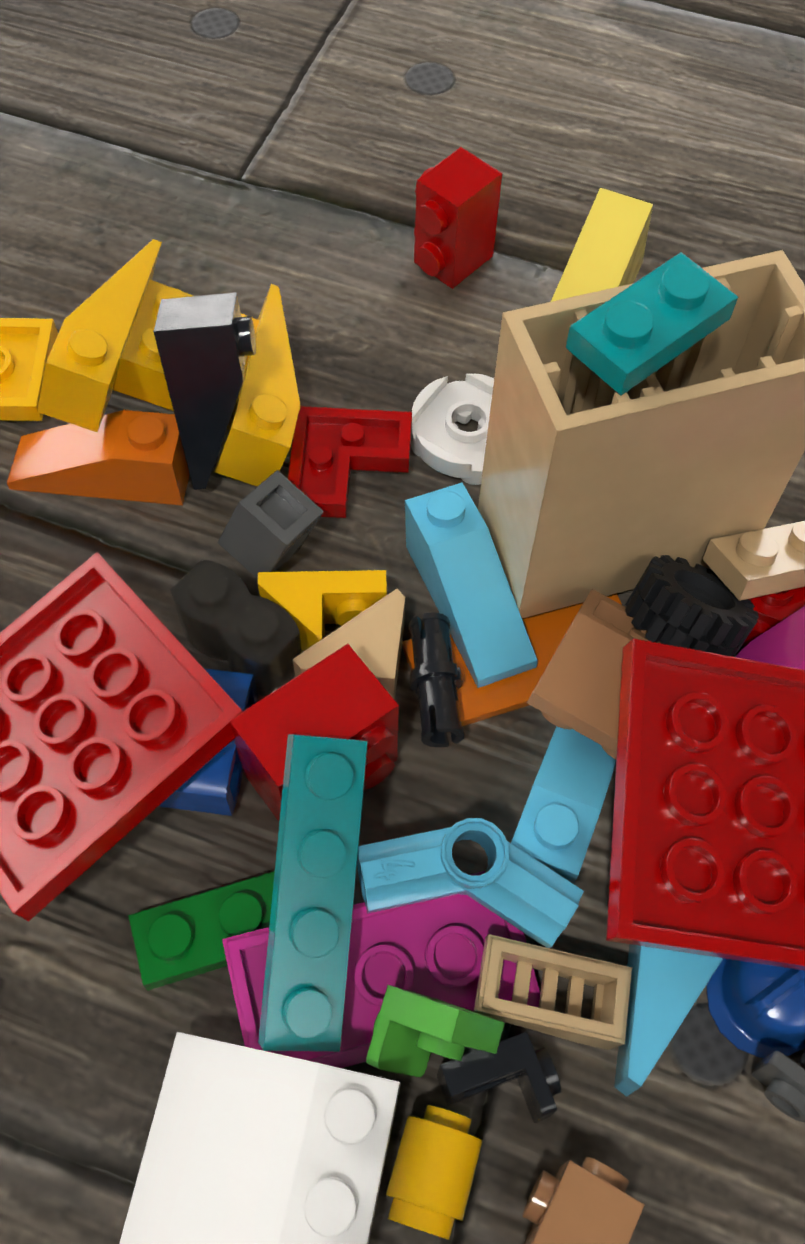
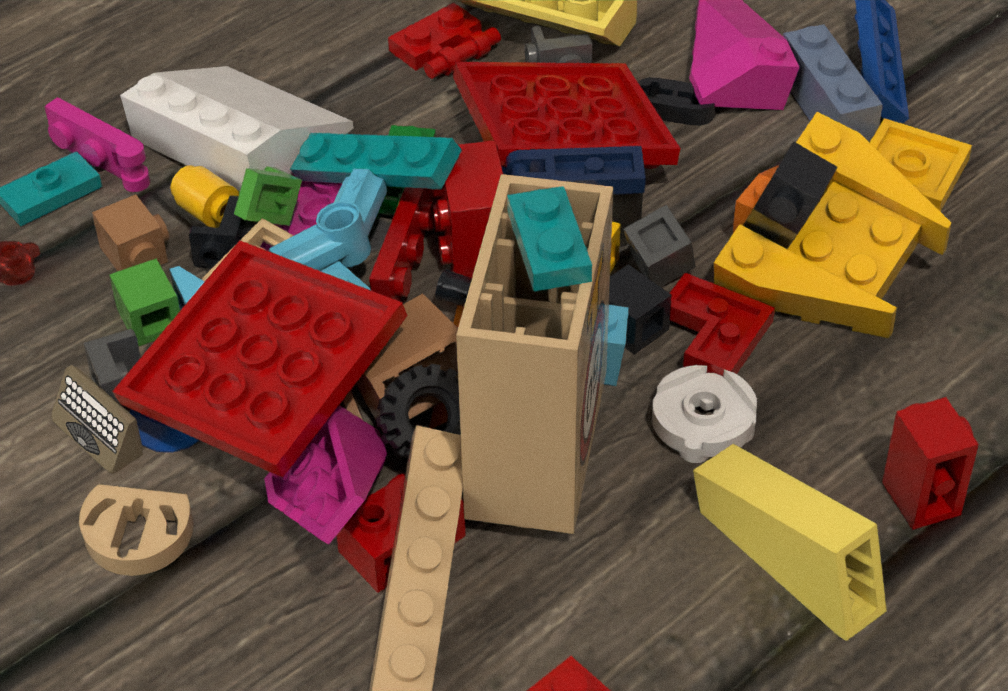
camera: 120 degrees right, 15 degrees down
(234, 610) = (604, 166): none -> dark blue plate
(365, 530) = (647, 305): none -> black brick
(388, 819) = (403, 243): none -> red plate
(682, 1113) = (145, 299): none -> bright green brick

